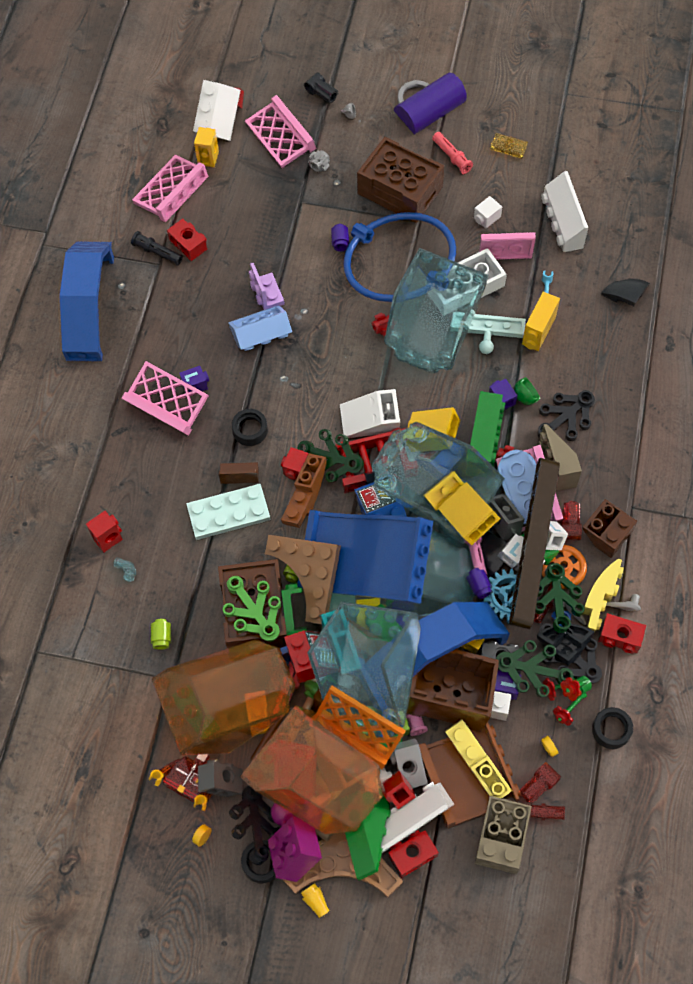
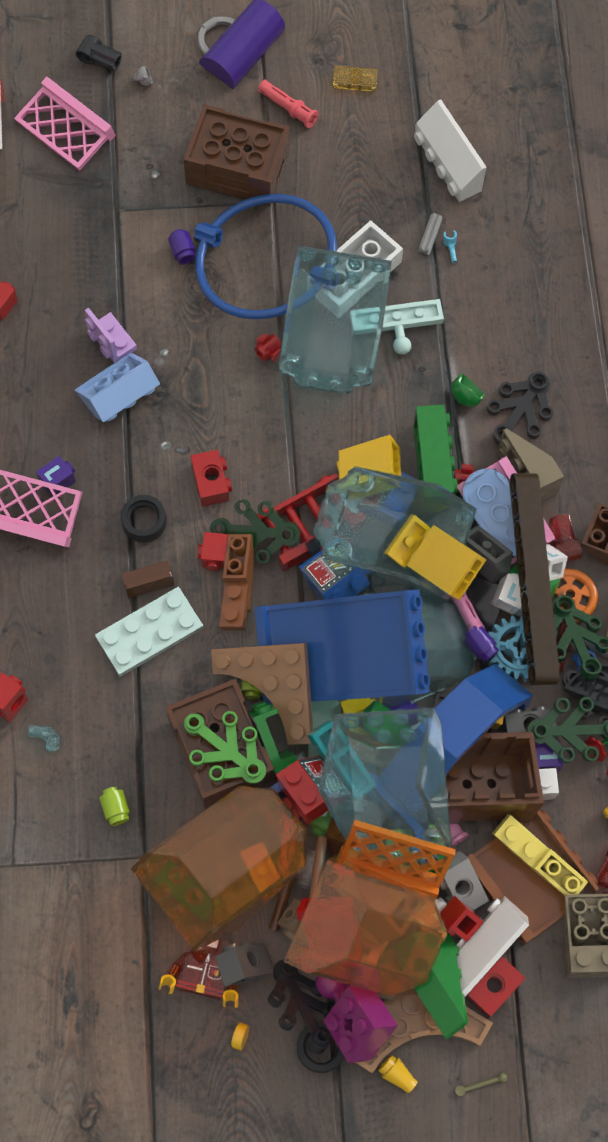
camera: 20 degrees left, 5 degrees up
(309, 419) = (211, 464): none -> red brick
(319, 161) = (126, 152): light grey gear -> none
(362, 928) = (460, 1090): none -> olive hinge
(370, 414) = (288, 466): white slope -> none
(487, 212) = (354, 172): white brick -> none
(505, 389) = (439, 396): dark purple brick -> none
(509, 245) = (394, 210): bright pink tile -> none
(533, 270) = (430, 234): none -> light grey axle
(540, 321) = (460, 298): yellow brick -> none
(626, 290) = (548, 233): black brick -> none

